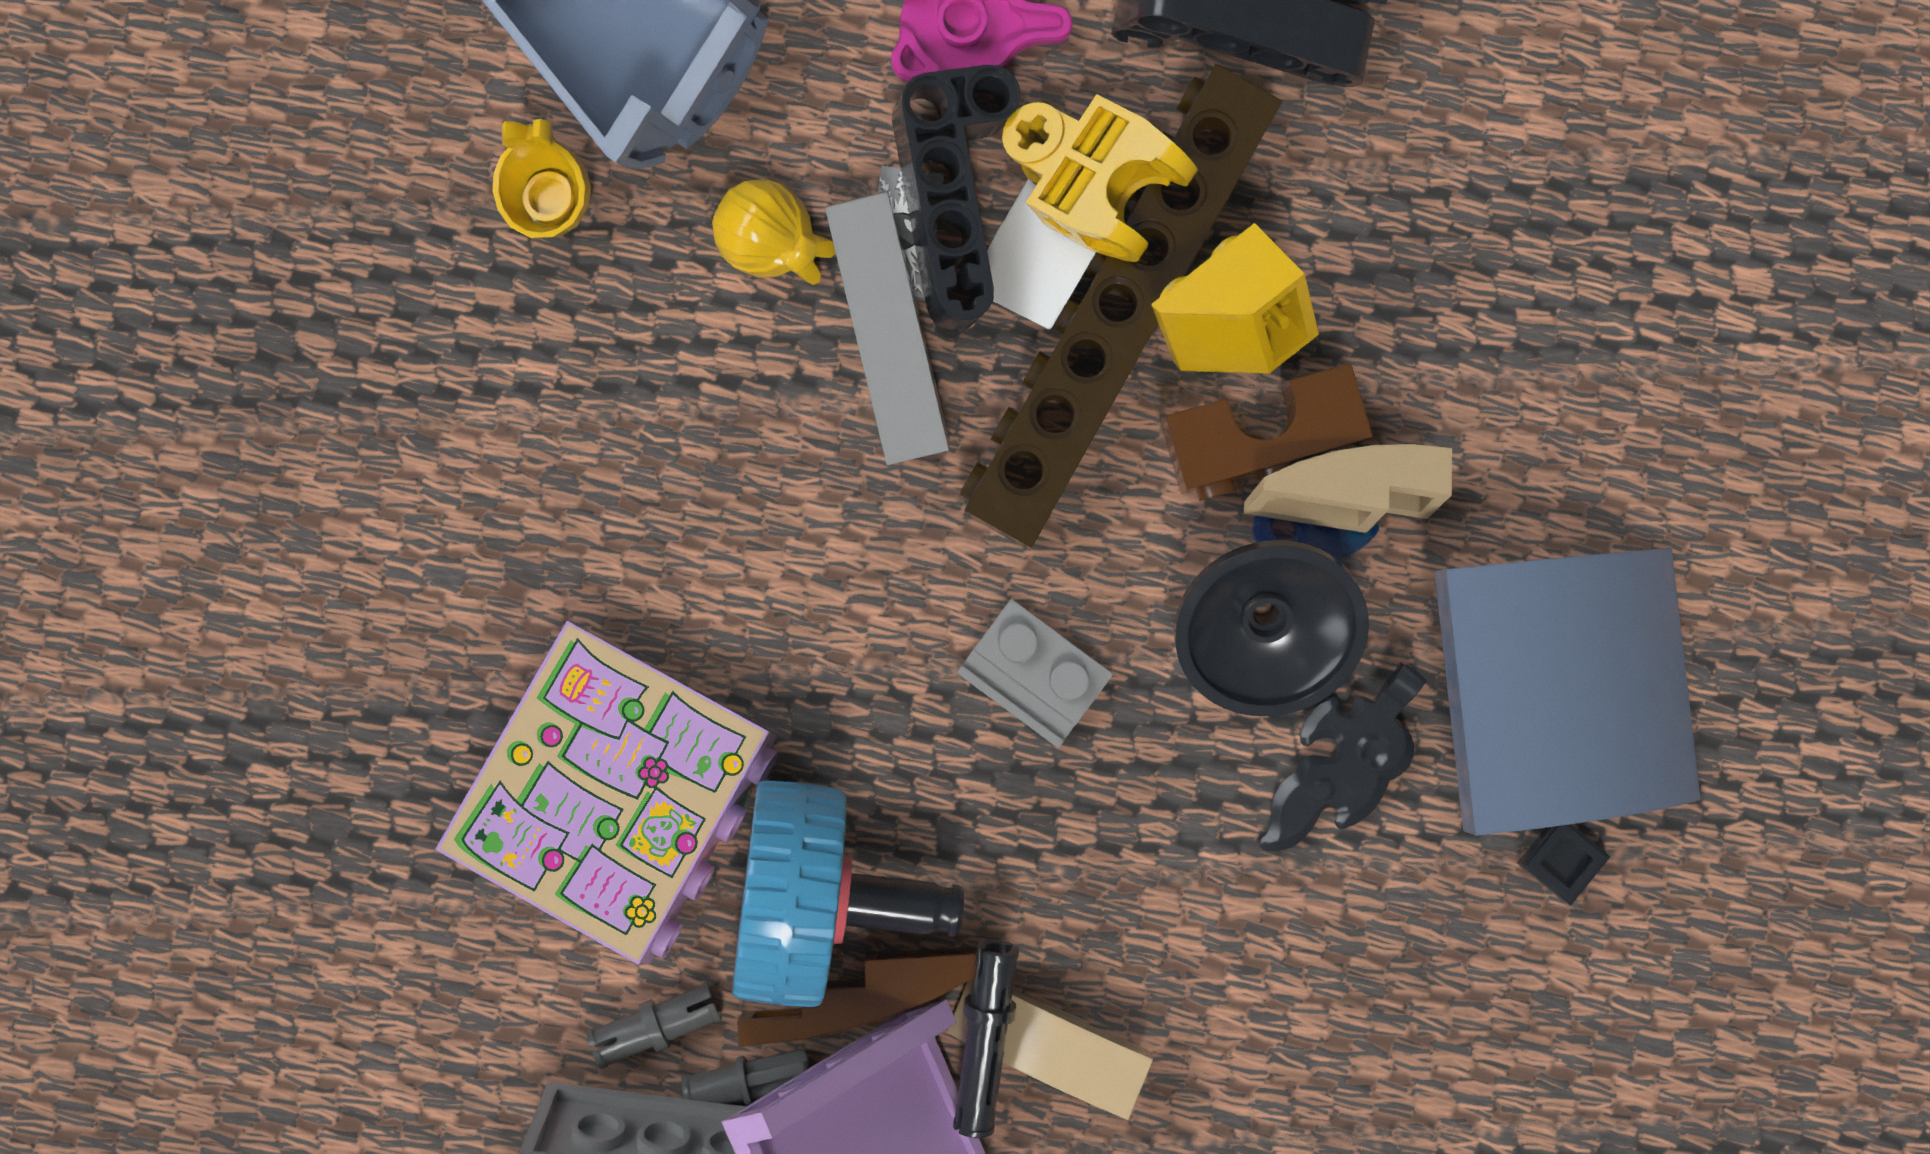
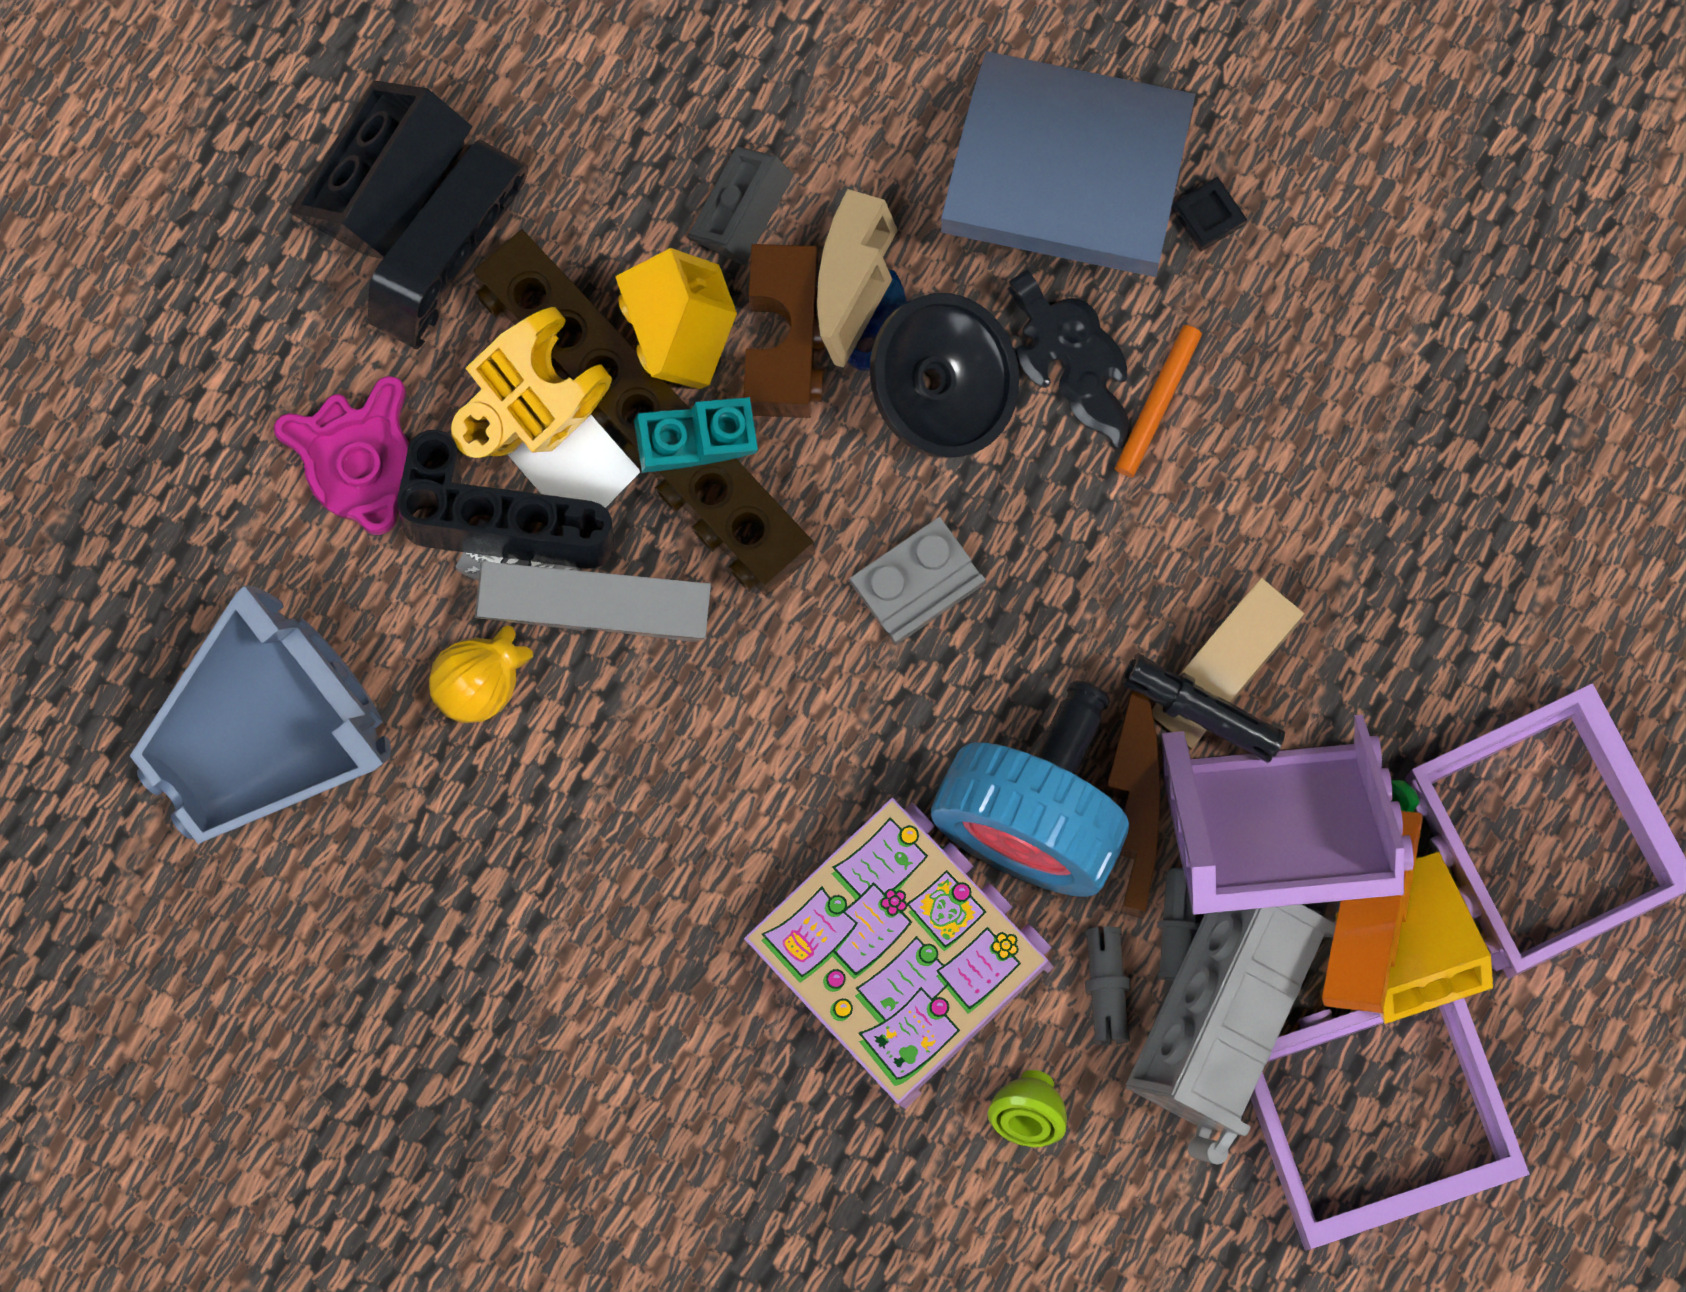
camera: 65 degrees left, 10 degrees down
(492, 986) = (1029, 1111): none -> lime brick
(539, 181) = (369, 845): yellow piece -> none
(1107, 376) = (696, 436): none -> teal slope
(1327, 871) = (1158, 401): none -> orange bar
(1399, 335) = (741, 204): none -> dark grey slope

